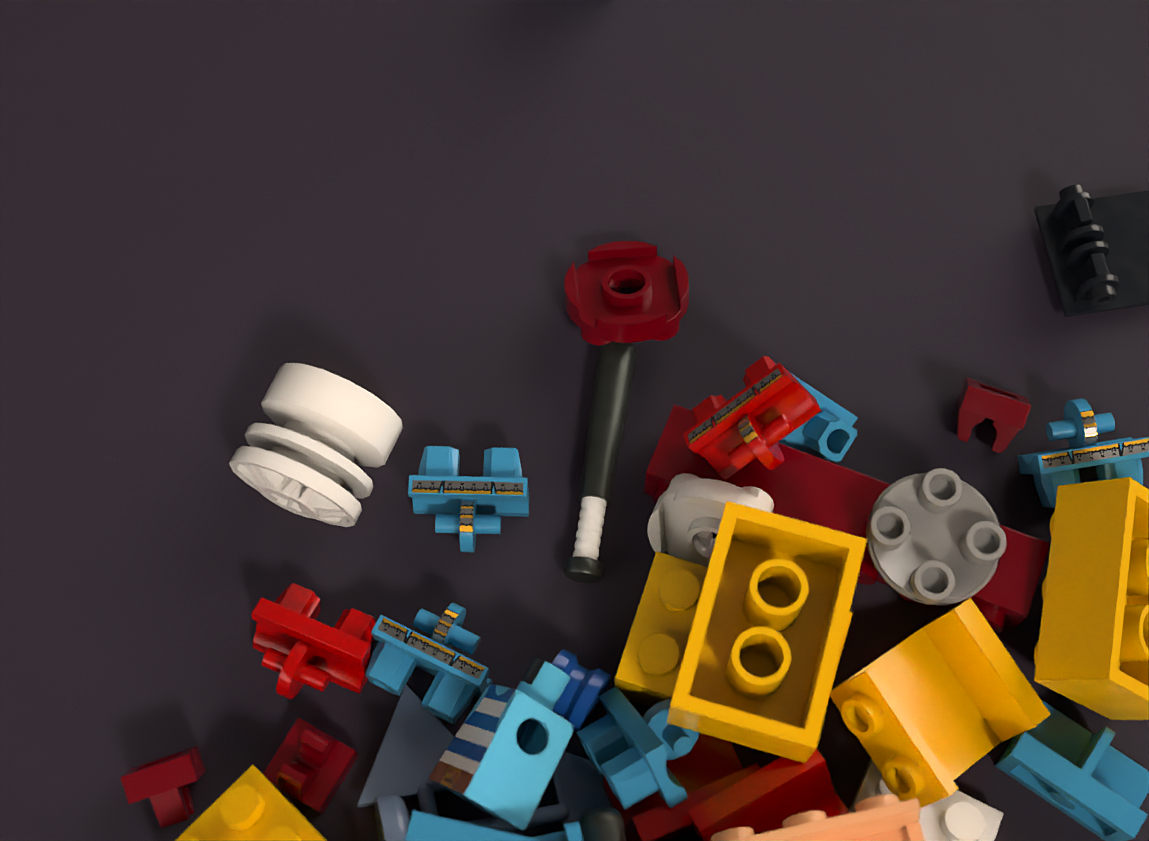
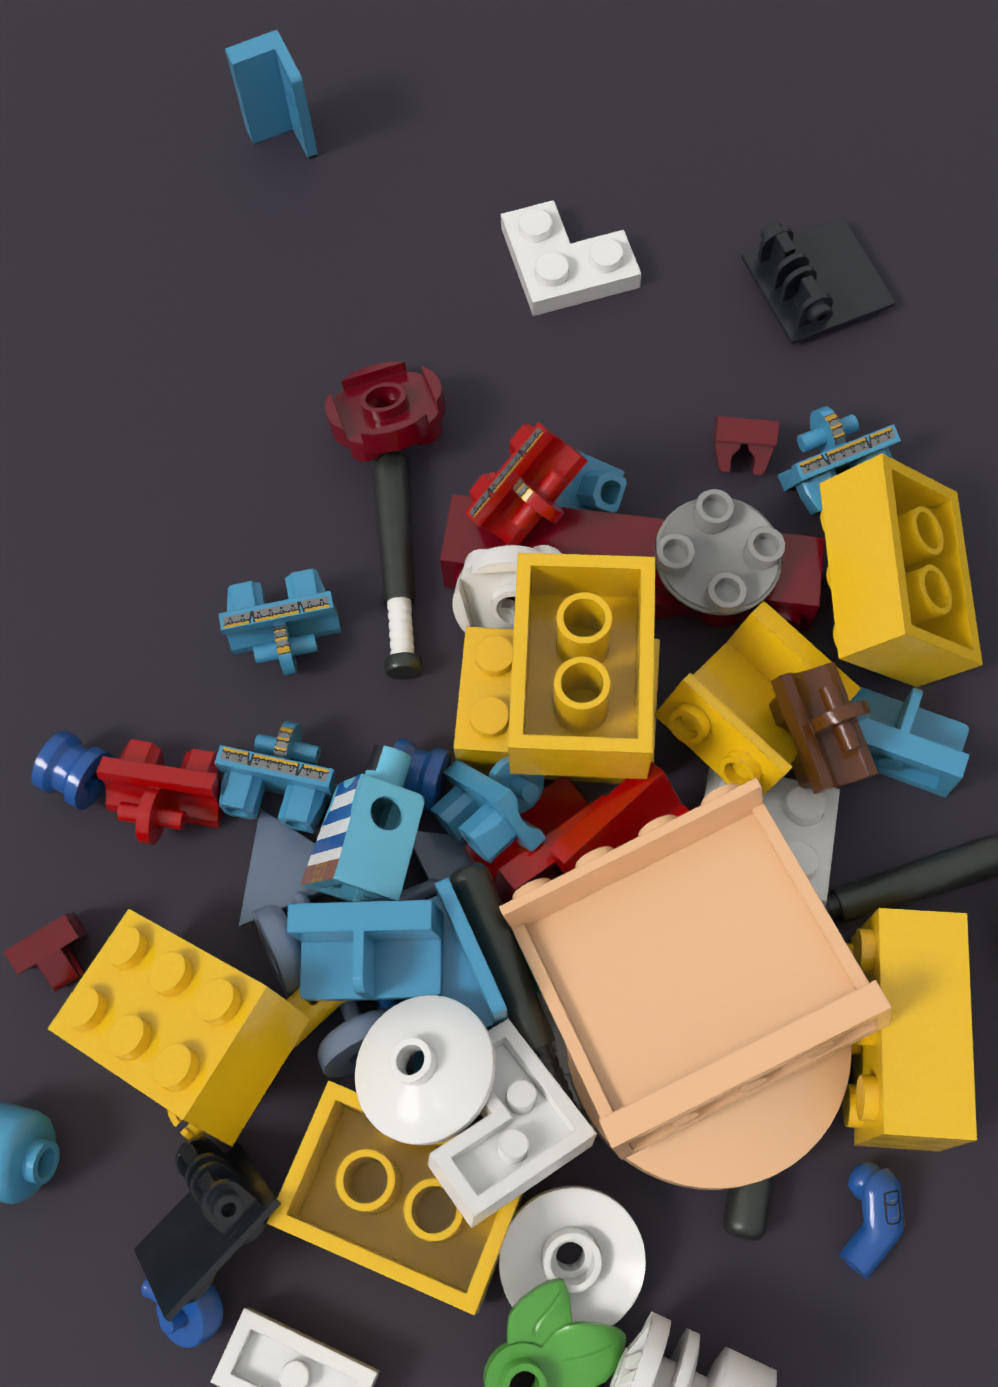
camera: 10 degrees left, 0 degrees up
(226, 599) = (69, 769): none -> blue wheel
(310, 765) = (187, 902): dark red tile -> none
(319, 441) = (124, 605): white wheel -> none
(845, 185) = (565, 273): none -> white plate
(1000, 751) = (823, 728): none -> reddish brown hips

